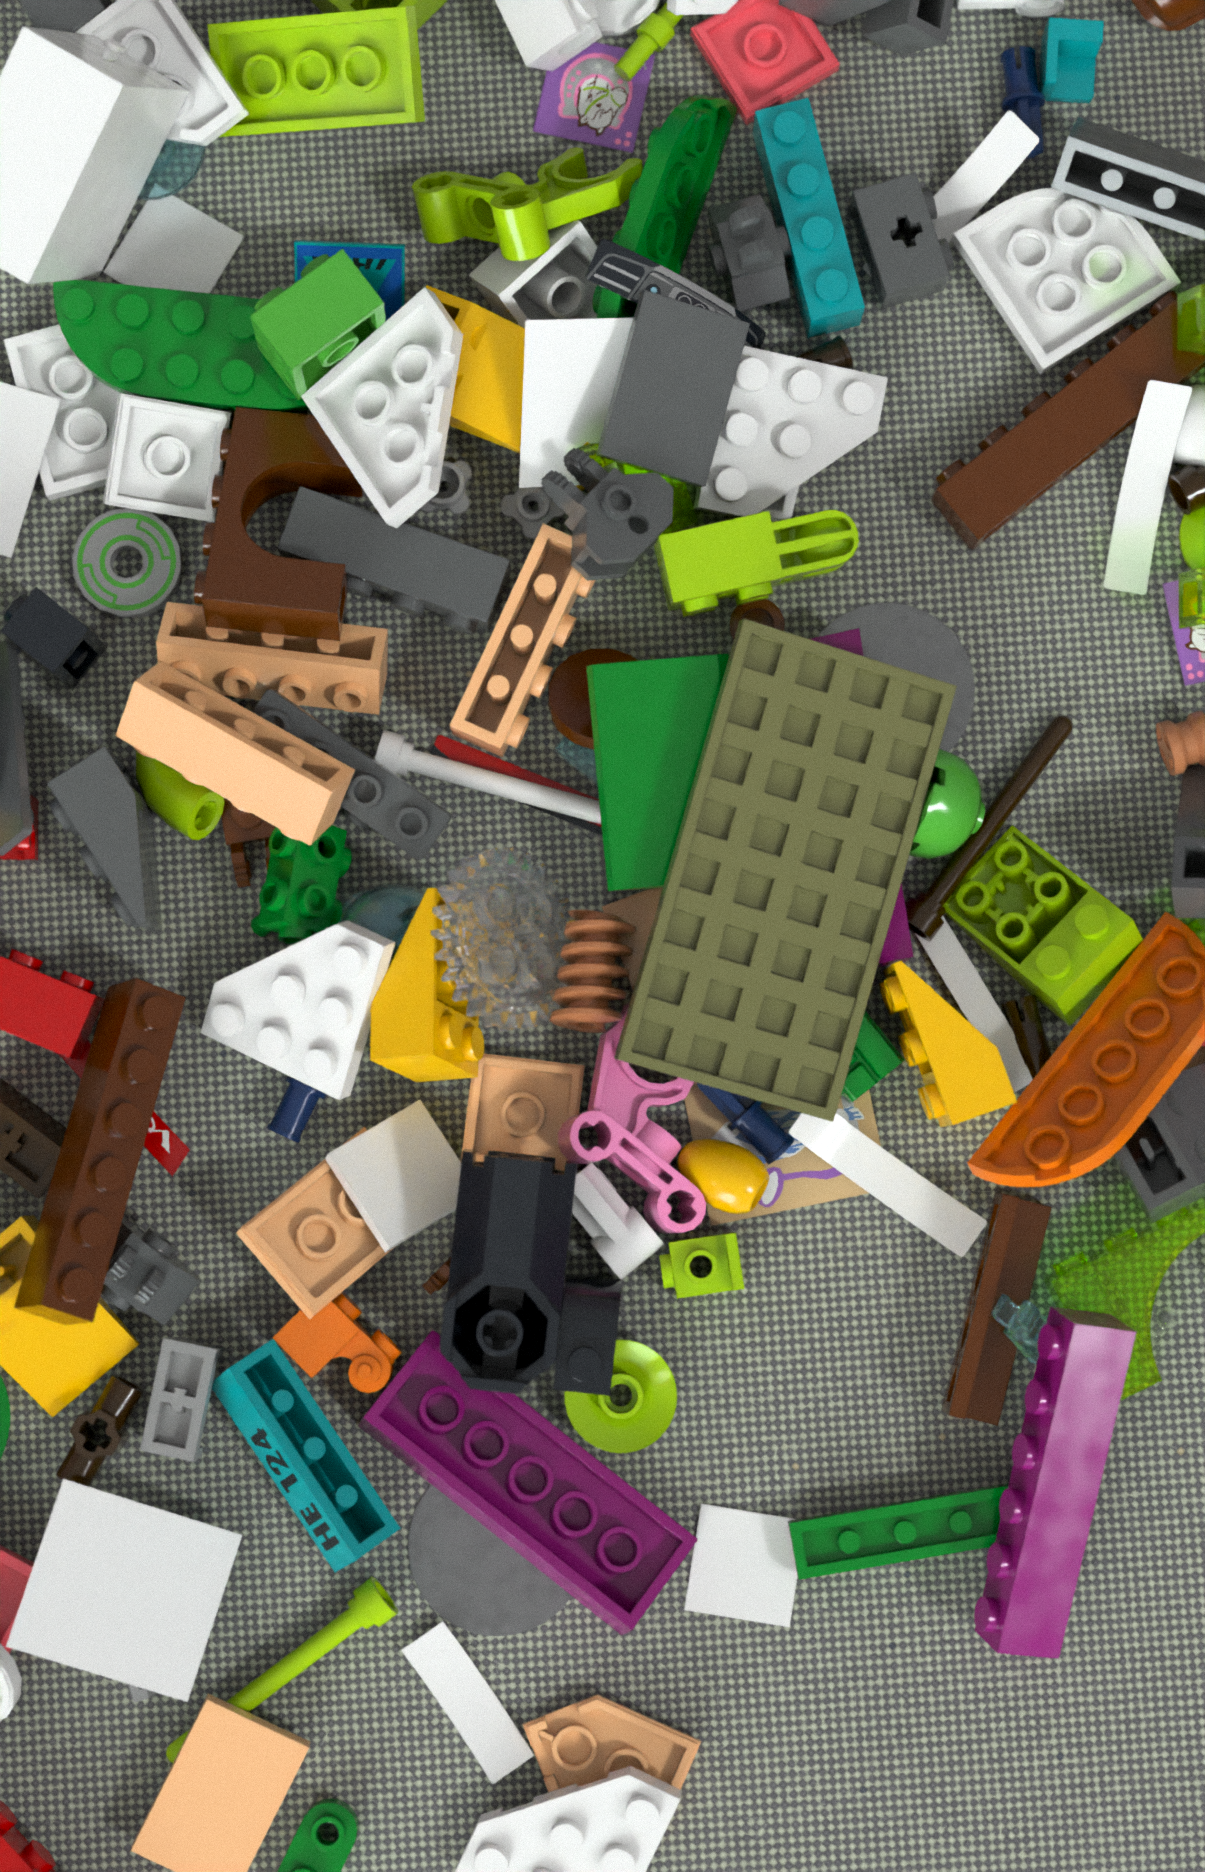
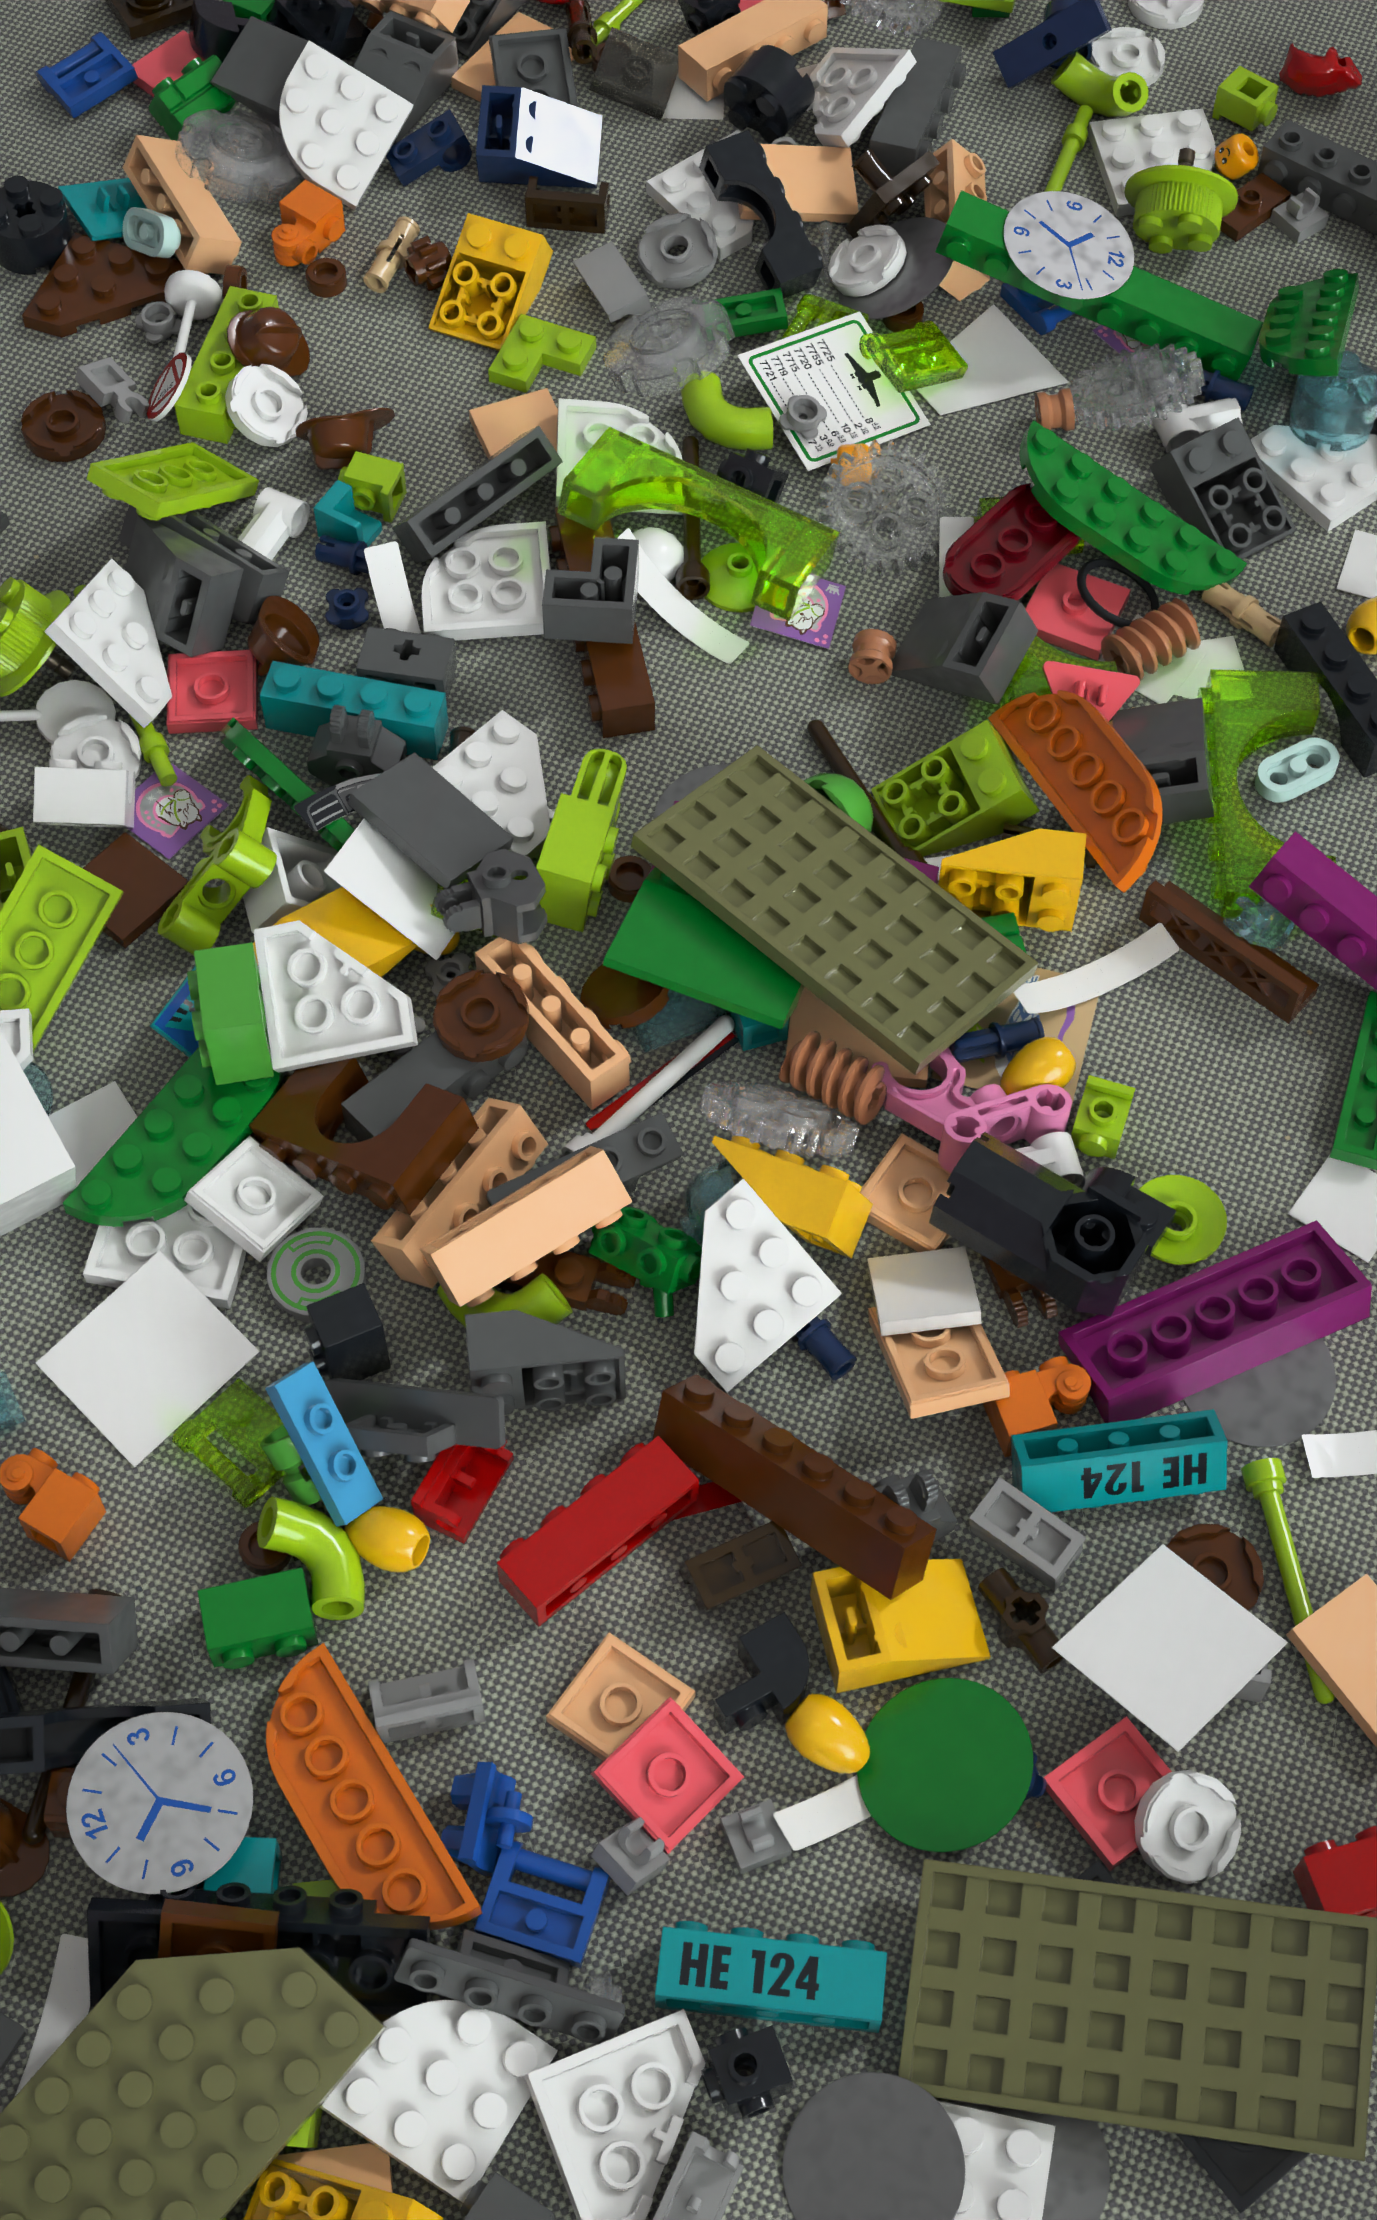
camera: 65 degrees left, 25 degrees down
(259, 1595) = (1223, 1560): none -> reddish brown tile
(467, 572) = (481, 1016): none -> reddish brown tile
(469, 110) = (146, 883): none -> reddish brown tile
(867, 86) = (282, 635): none -> reddish brown piece
(948, 144) = (347, 608): none -> dark blue plate
(1065, 418) = (598, 602): none -> dark grey brick
(1131, 61) = (375, 484): none -> lime brick

